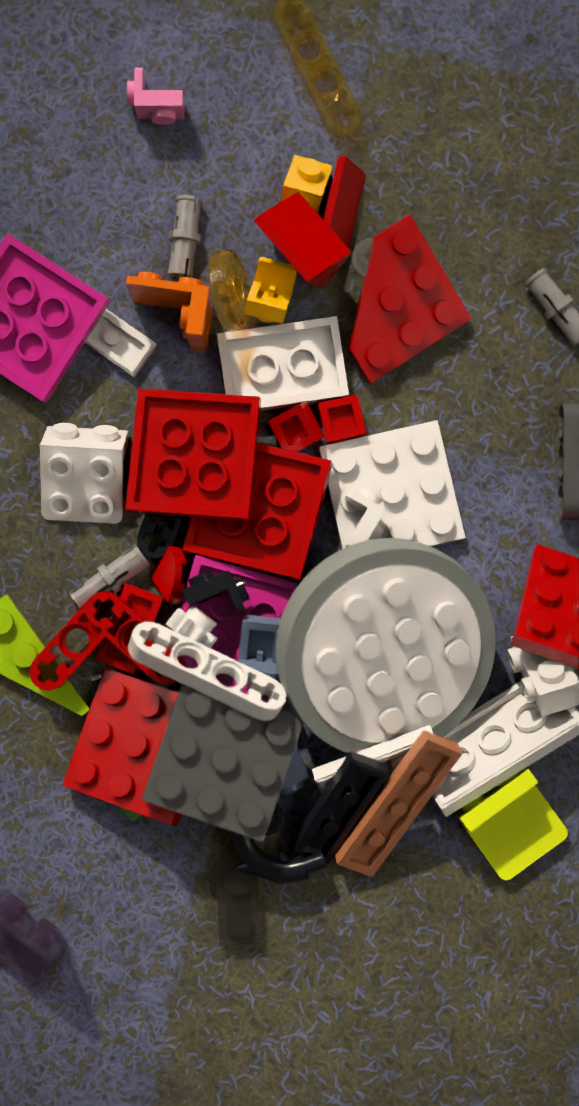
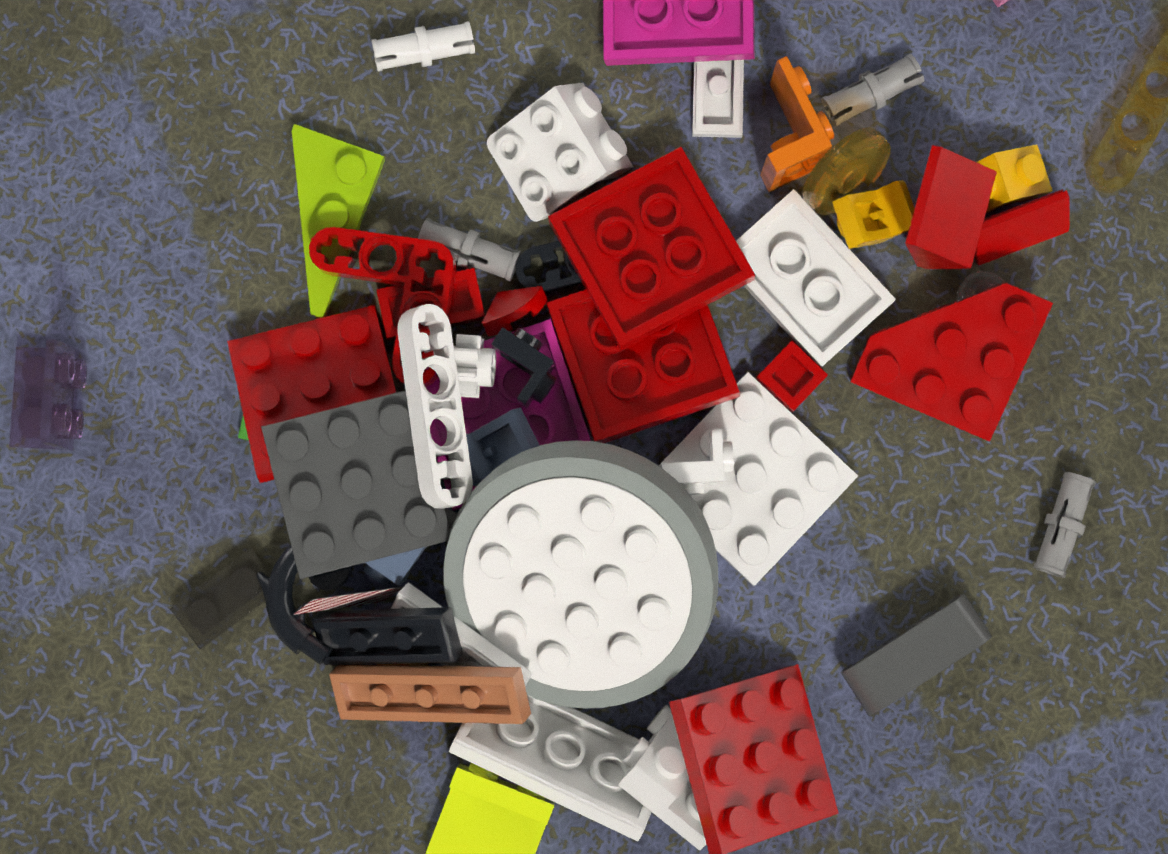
camera: 60 degrees right, 0 degrees up
(296, 428) = (750, 335): red plate -> none
(296, 819) = (347, 600): none -> sticker

